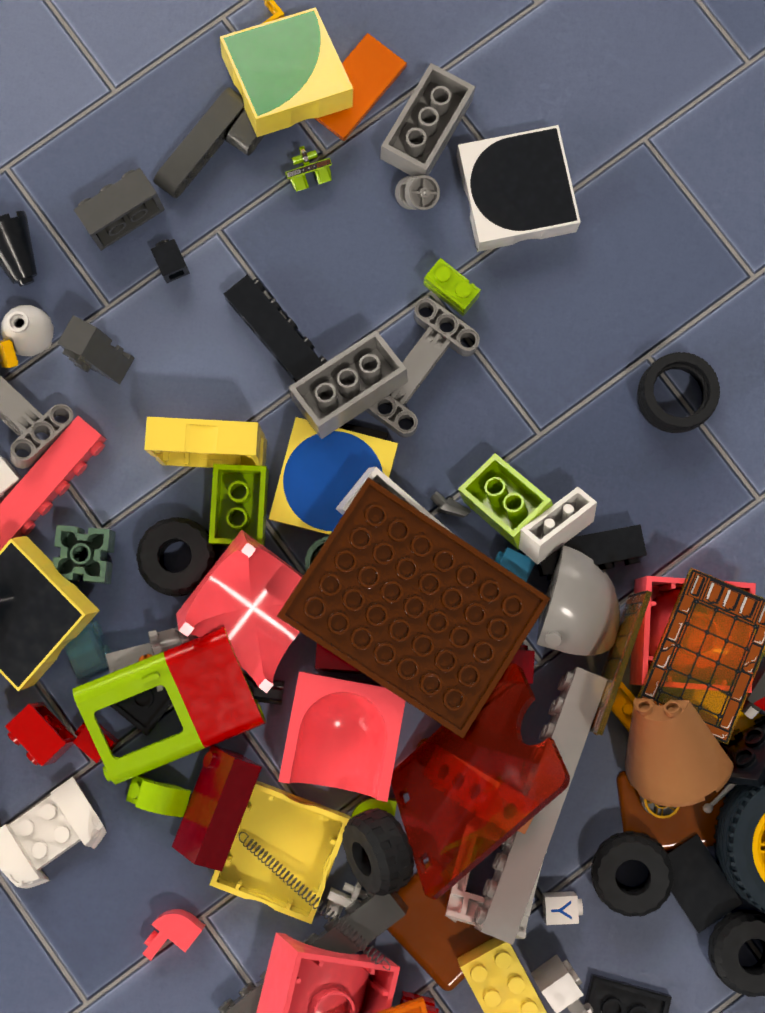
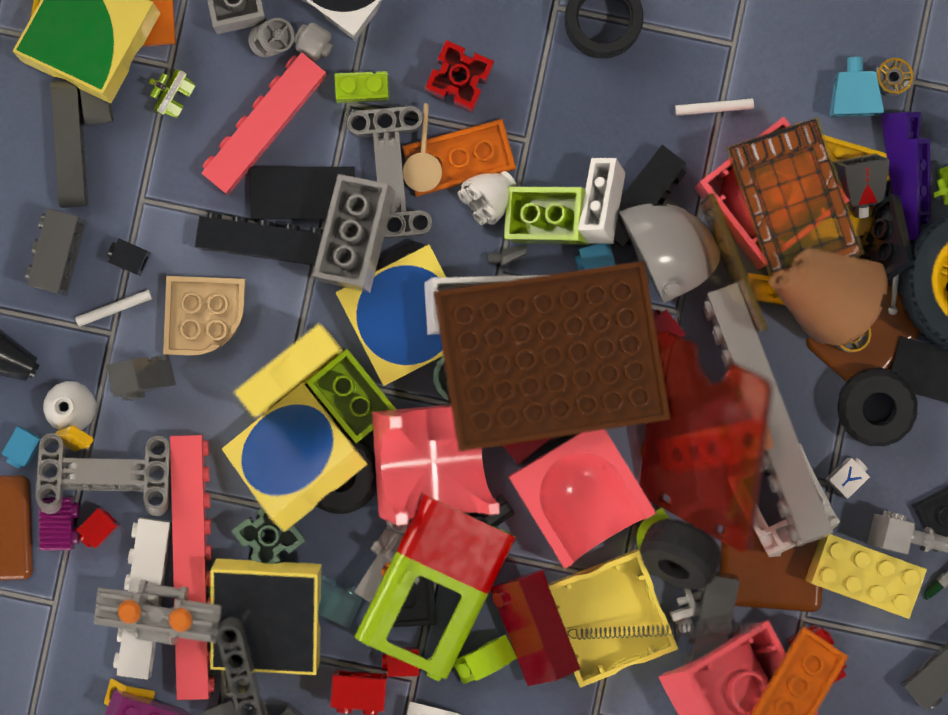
camera: 45 degrees left, 5 degrees up
(125, 288) = (113, 308): none -> white bar
(152, 511) = (293, 457): none -> tile
(185, 348) = (201, 313): none -> tan plate
(331, 317) = (293, 192): none -> black tile
(356, 251) = (264, 123): none -> coral brick
(442, 386) = (422, 170): none -> tan piece
(445, 223) = (313, 41): none -> light grey head
(473, 447) = (487, 195): none -> white piece
(477, 402) = (467, 153): none -> orange tile
(536, 327) = (453, 61): none -> red brick
(703, 532) = (711, 107): none -> white bar

